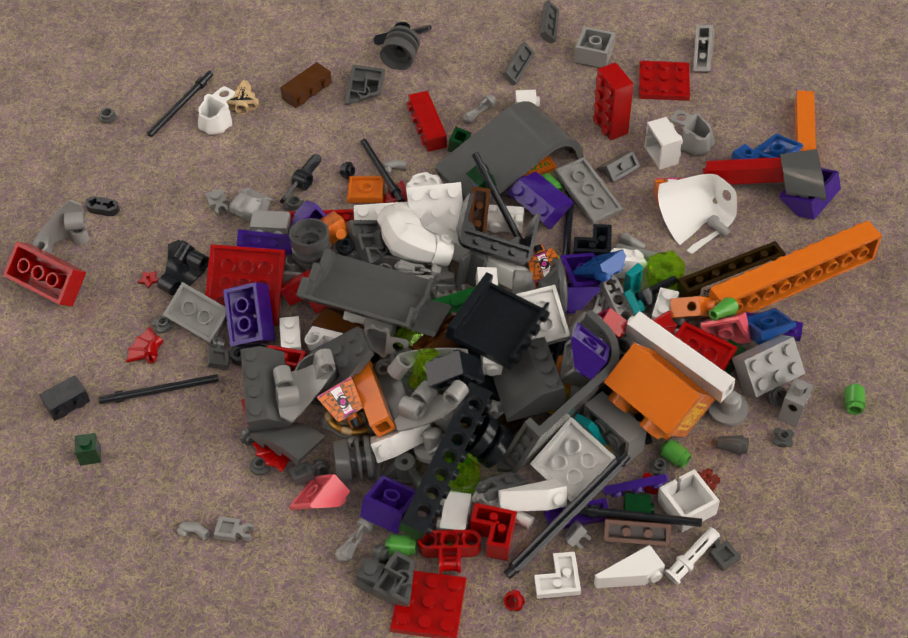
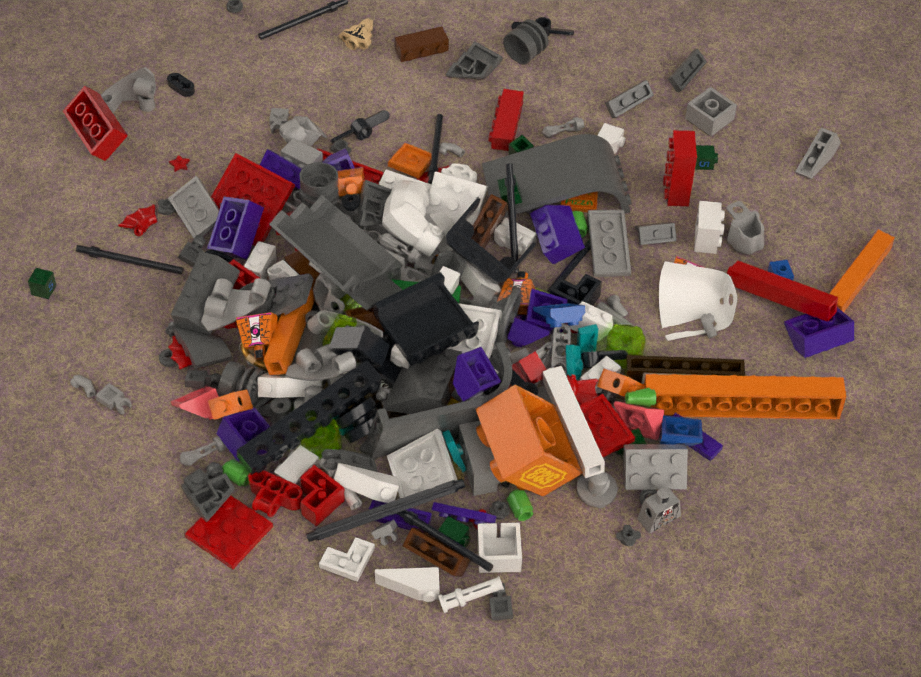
camera: 25 degrees right, 0 degrees up
(64, 398) = (50, 234): black brick -> none
(183, 265) = (211, 165): black panel -> none
(214, 112) = (321, 38): white piece -> none
(347, 169) = (406, 136): black plate -> none
(360, 483) = (229, 404): none -> orange torso
(509, 601) = (298, 559): red plate -> none
(664, 80) = (759, 169): red plate -> none
(709, 479) = (534, 540): clear red plant -> none
(734, 444) = (581, 522): dark grey cone -> none
(777, 145) = (816, 276): blue slope -> none
(803, 174) = (813, 309): dark grey slope -> none
(855, 399) = (718, 532): bright green brick -> none

